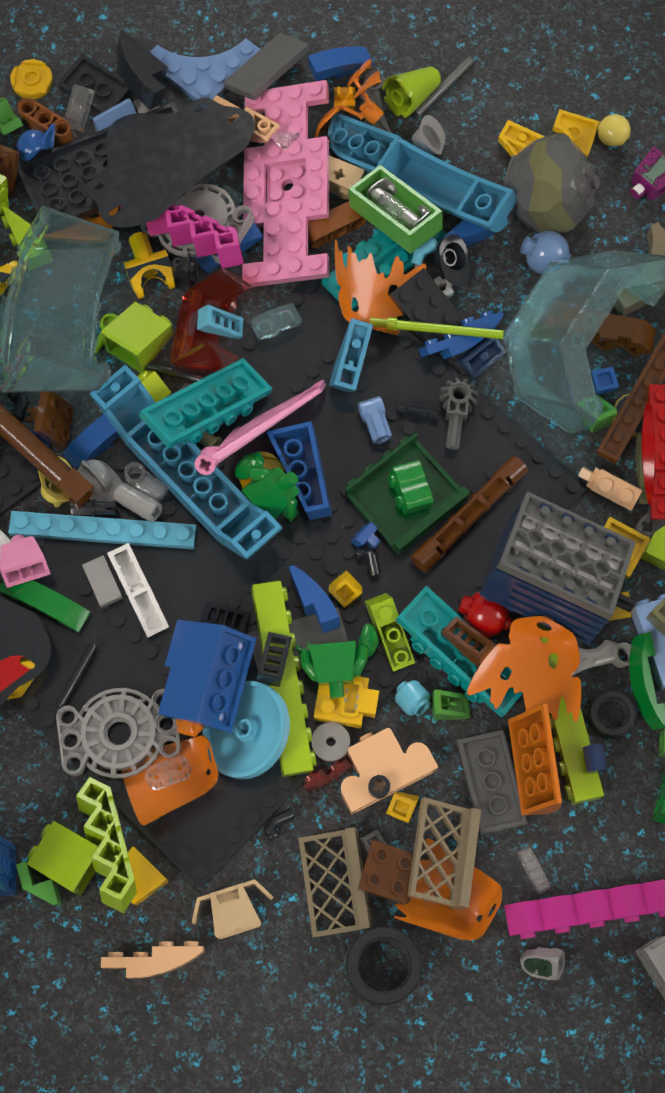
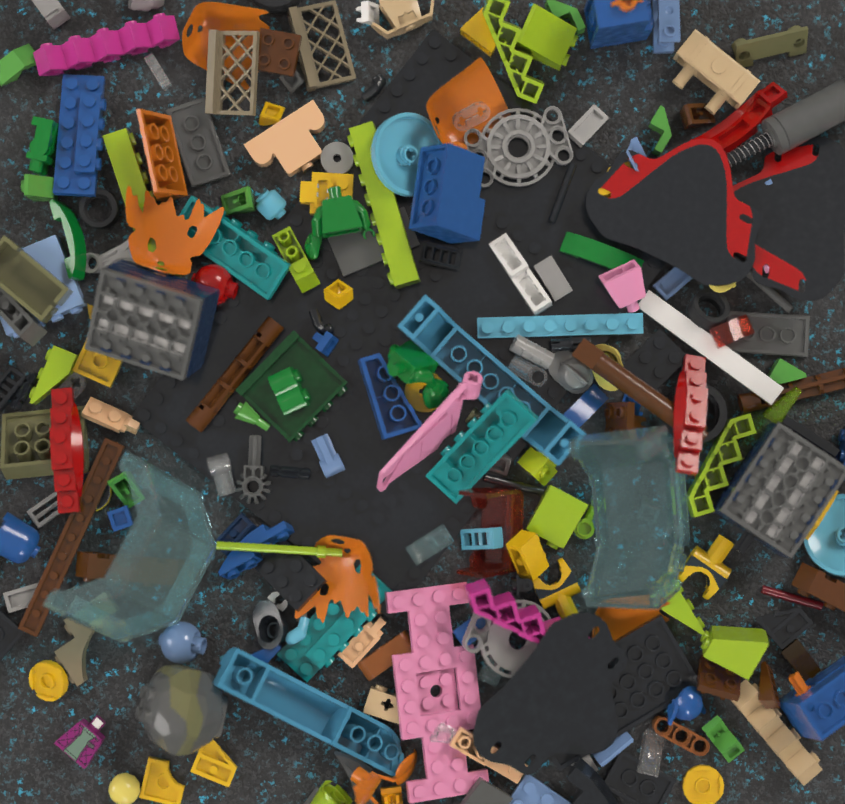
camera: 170 degrees right, 15 degrees up
(34, 751) = (587, 125): none -> light grey tile
(173, 298) = (527, 555): none -> yellow brick
(268, 673) = (393, 197): black slope -> none
(273, 913) = (369, 13): none -> white tile
(314, 600) = (364, 277): blue slope -> none
(319, 780) = (341, 126): clear red slope -> none
(351, 356) = (355, 507): dark azure slope -> none
(360, 232) = (363, 642): none -> light nougat hinge
(386, 788) = (285, 121): black bush -> none
(395, 208) = (328, 664): bright green piece -> none
(429, 136) = (303, 758): light grey piece -> none
(459, 471) = (247, 414): none -> bright green cone
(463, 646) = (223, 260): reddish brown slope -> none
(492, 417) = (221, 469): none -> clear piece
(594, 758) = (111, 162): dark blue piece -> none
(630, 802) = (79, 135): none -> blue plate

